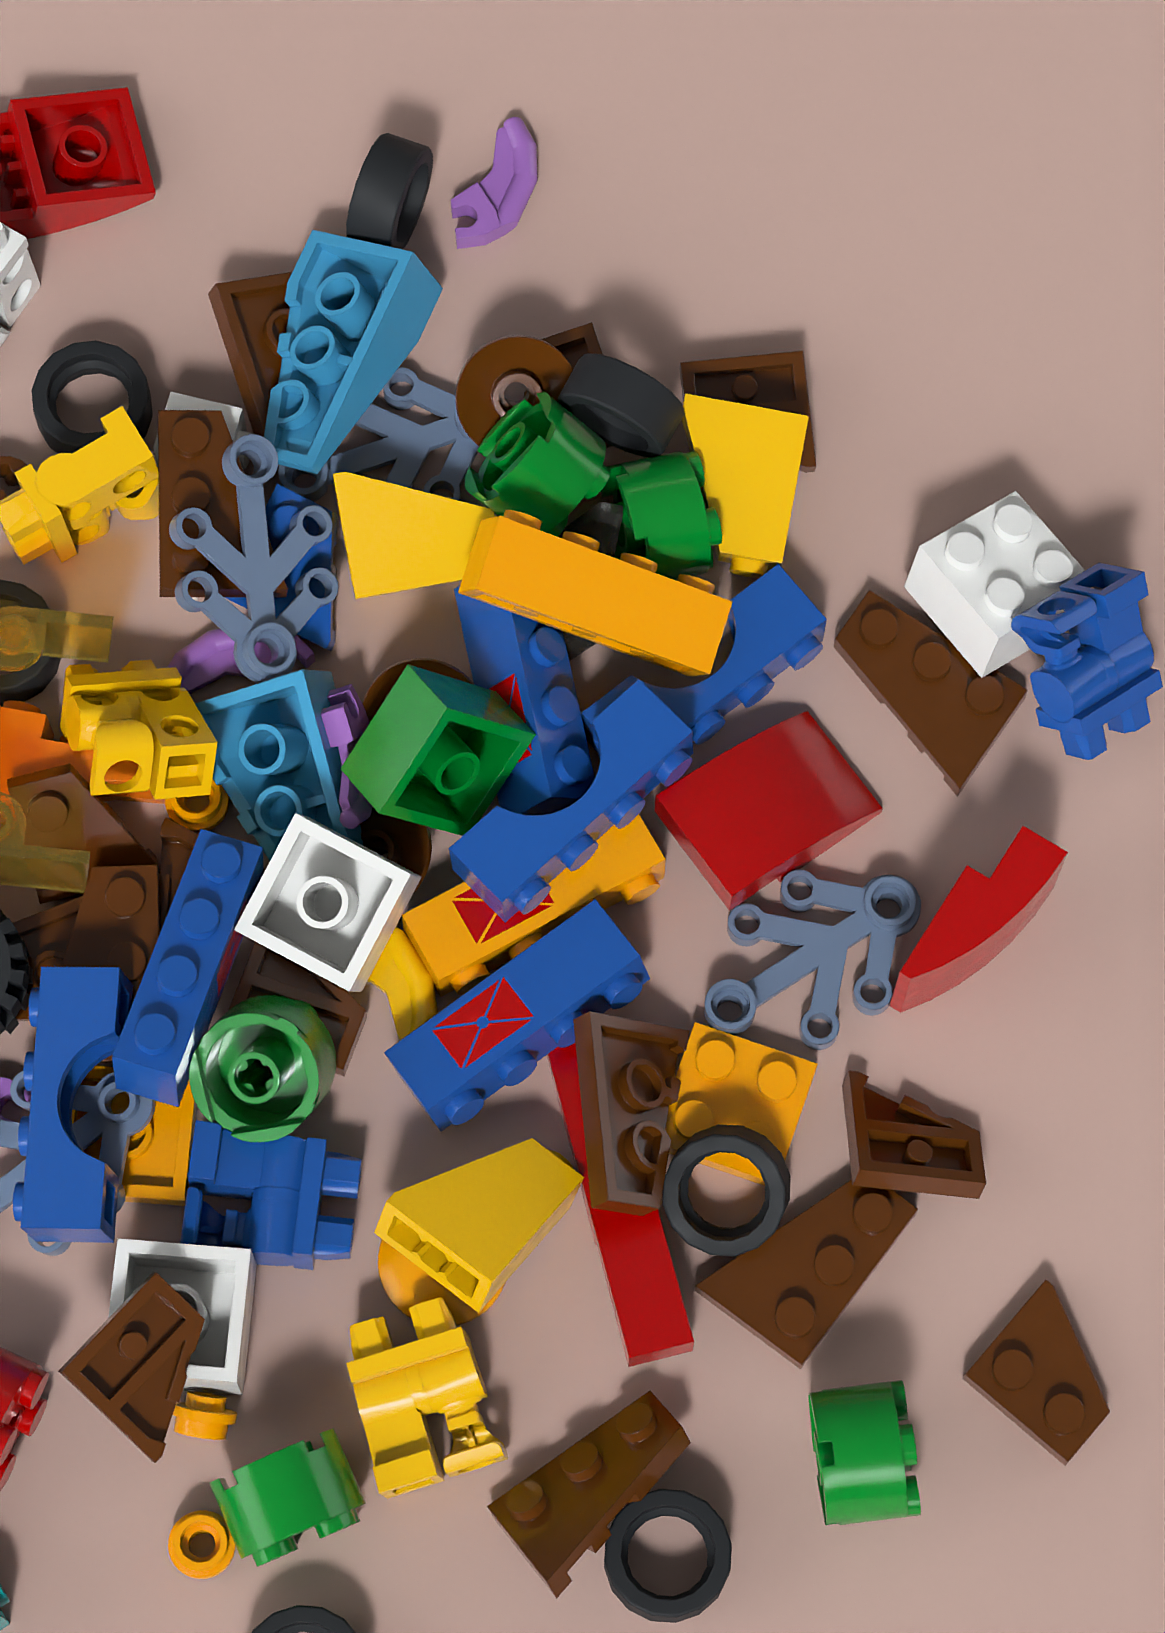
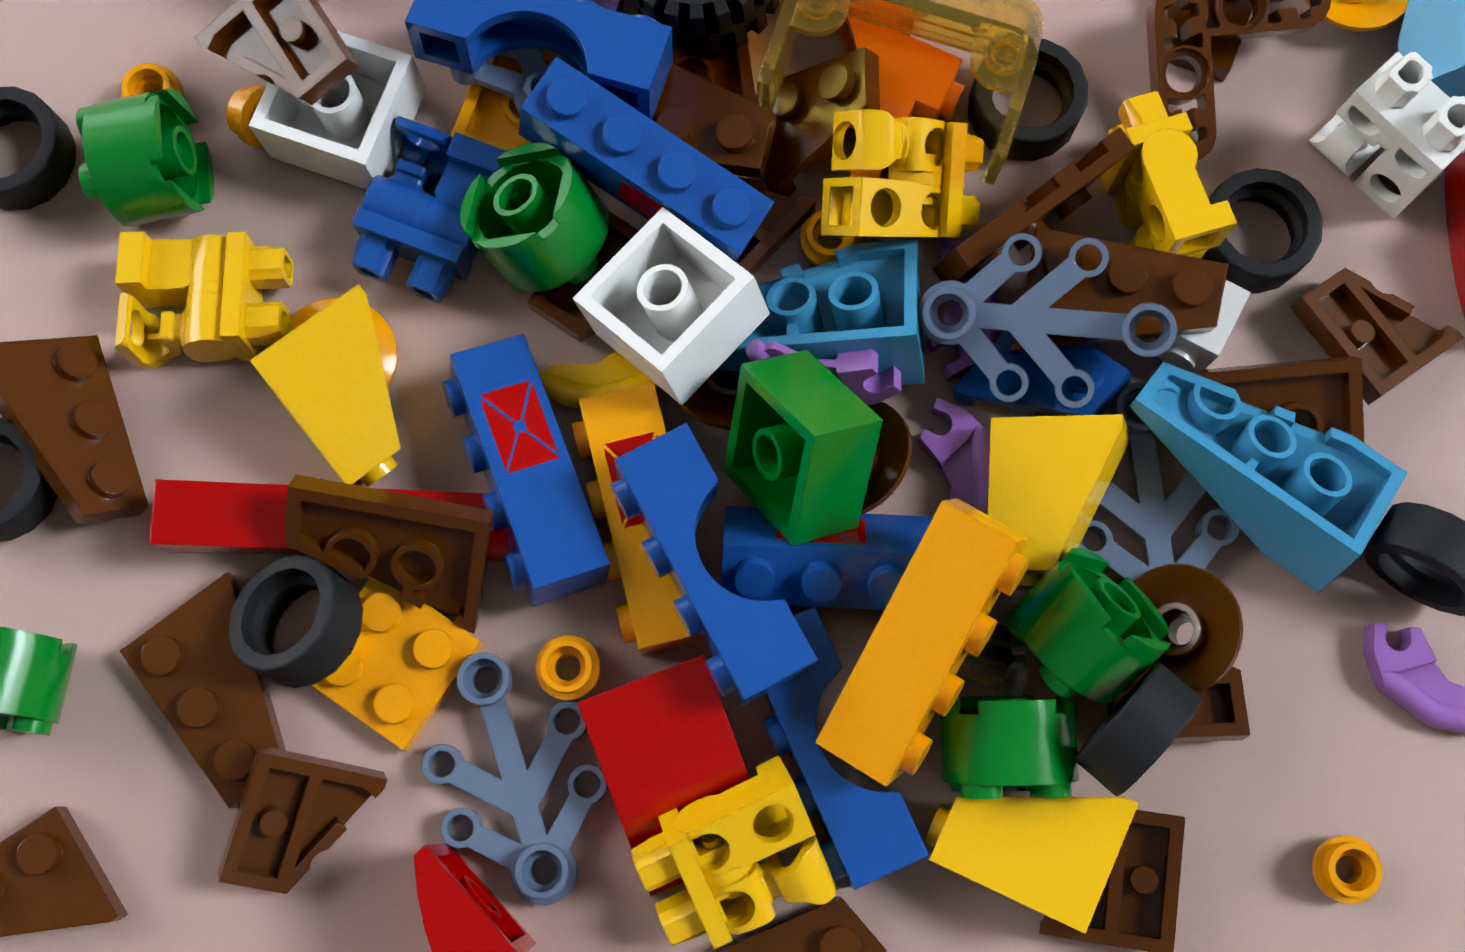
camera: 105 degrees right, 5 degrees up
(113, 587) = (1061, 194): none -> reddish brown wing
(172, 284) = (1378, 327): none -> reddish brown wing
(397, 621) = (961, 454): none -> medium lavender piece
(684, 211) = (1366, 869): none -> light orange plate
(699, 918) = (553, 653): none -> light orange plate
(829, 734) = (717, 852): none -> yellow hips

